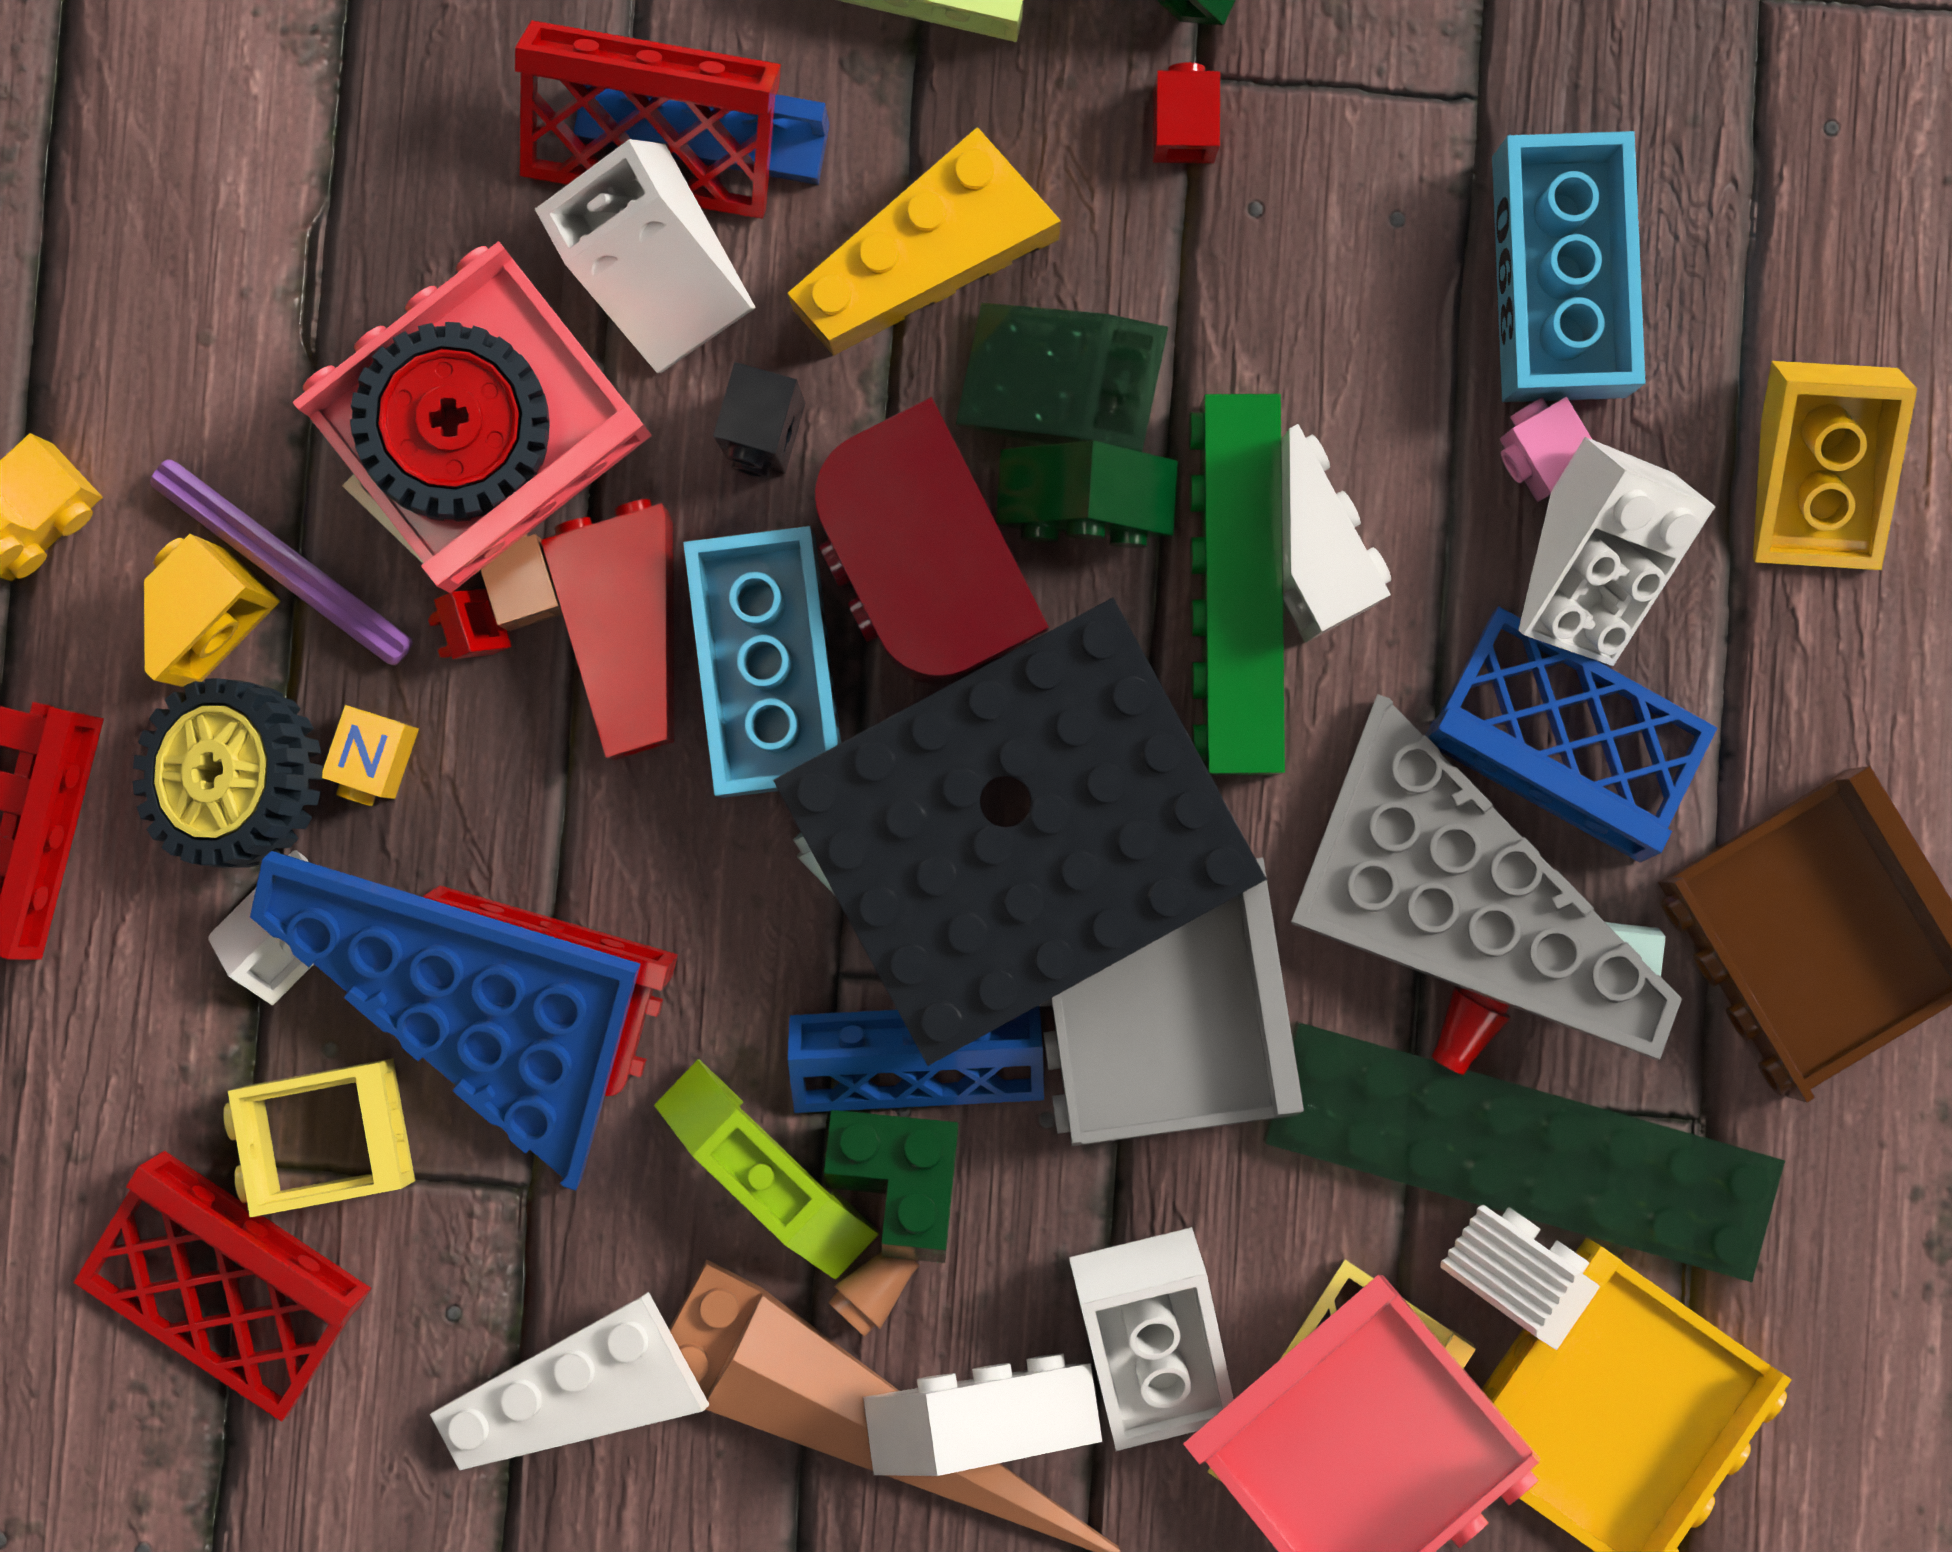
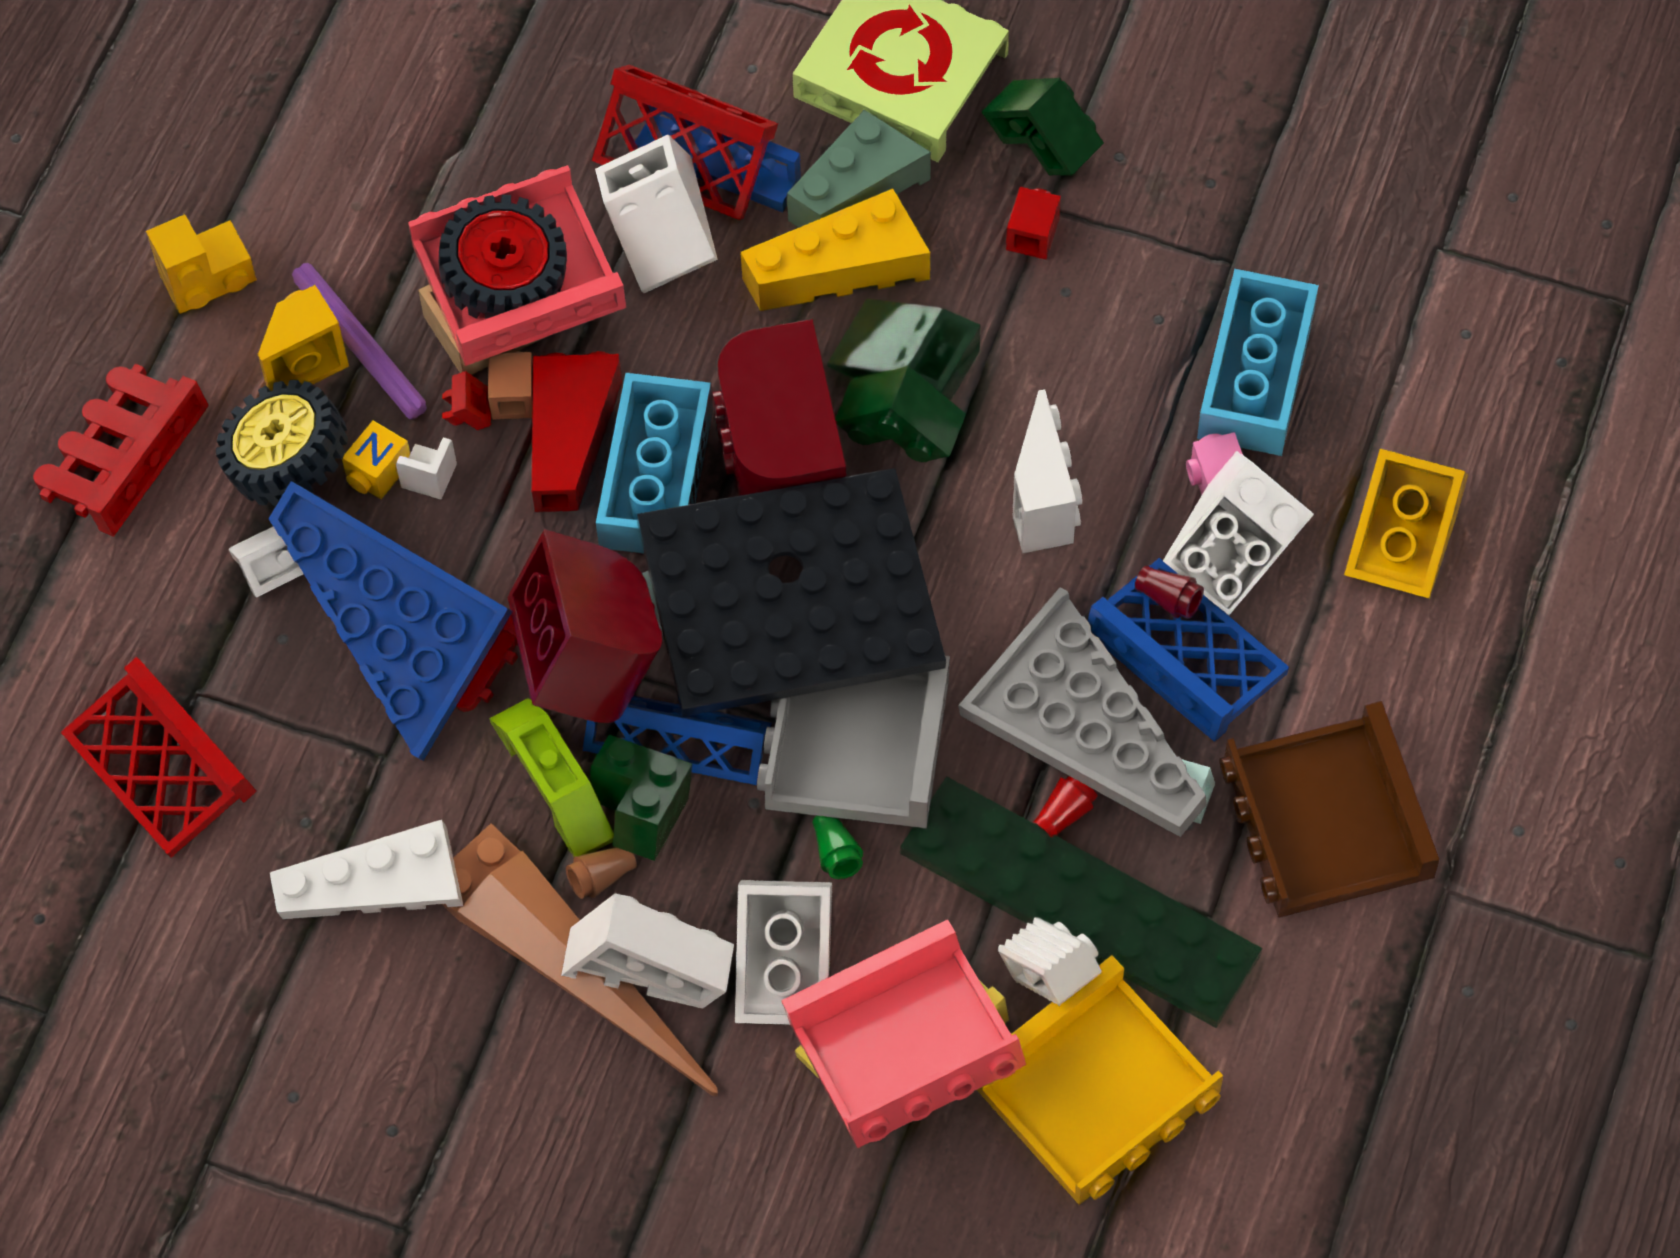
camera: 15 degrees right, 25 degrees down
(383, 1125) = (267, 645): light yellow window -> none
(445, 743) = (427, 469): none -> white panel
(753, 982) = (583, 627): none -> dark red brick
(759, 420) = (699, 321): black brick -> none
(913, 105) = (858, 166): none -> sand green wedge
(1181, 1169) = (837, 848): none -> green cone
(1239, 584) = (984, 505): green brick -> none
(1537, 669) = (1172, 591): none -> dark red cone

